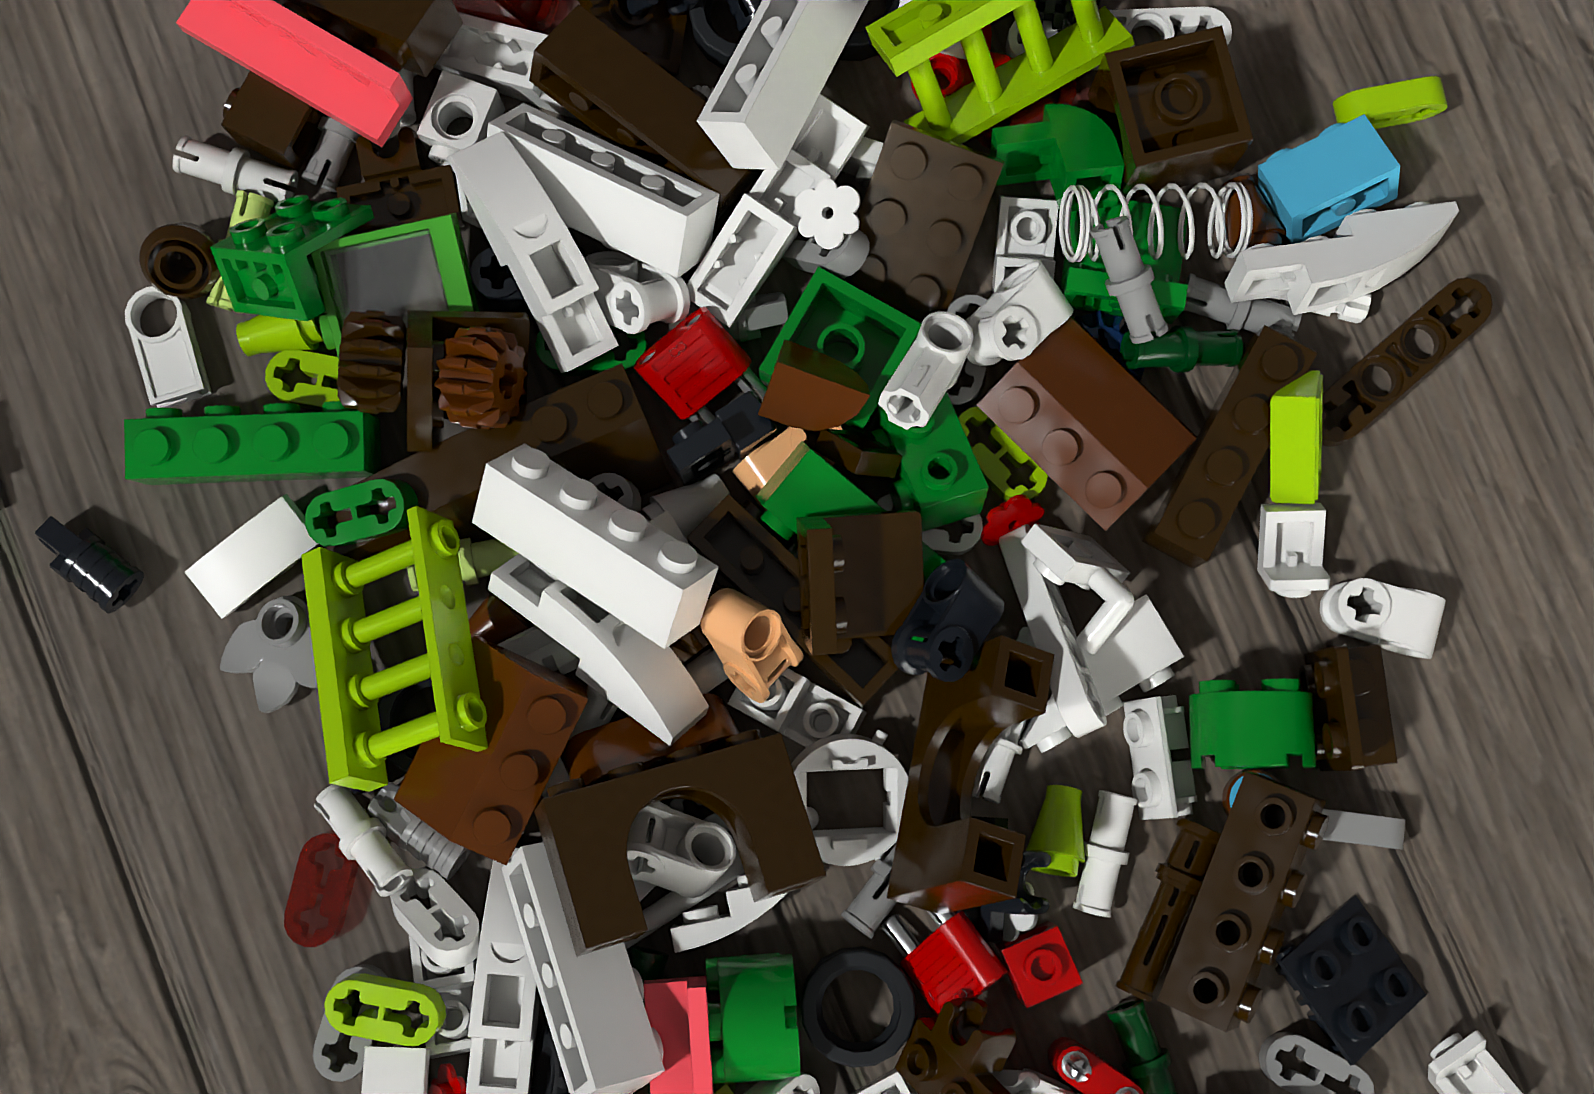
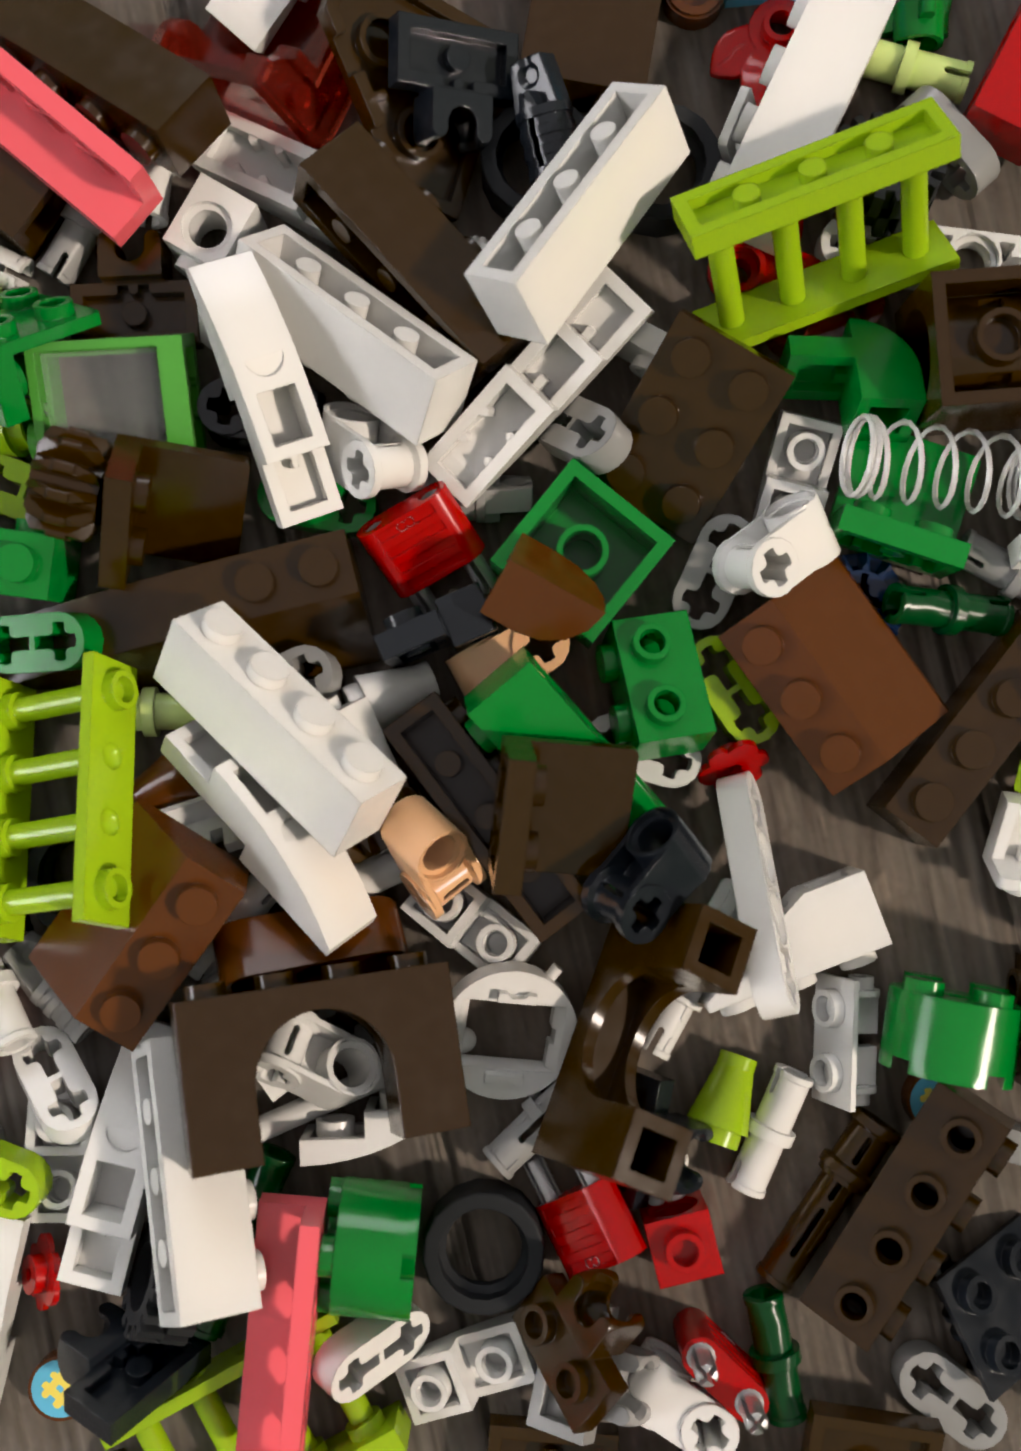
camera: 10 degrees right, 5 degrees up
(481, 377) = (185, 521): reddish brown gear -> none
(813, 206) = (579, 389): white plant -> none
(858, 453) = (581, 670): dark brown tile -> none
(927, 370) = (672, 592): white piece -> none
(1081, 560) = (799, 823): white plate -> none
(1129, 279) = (911, 529): light grey pin -> none

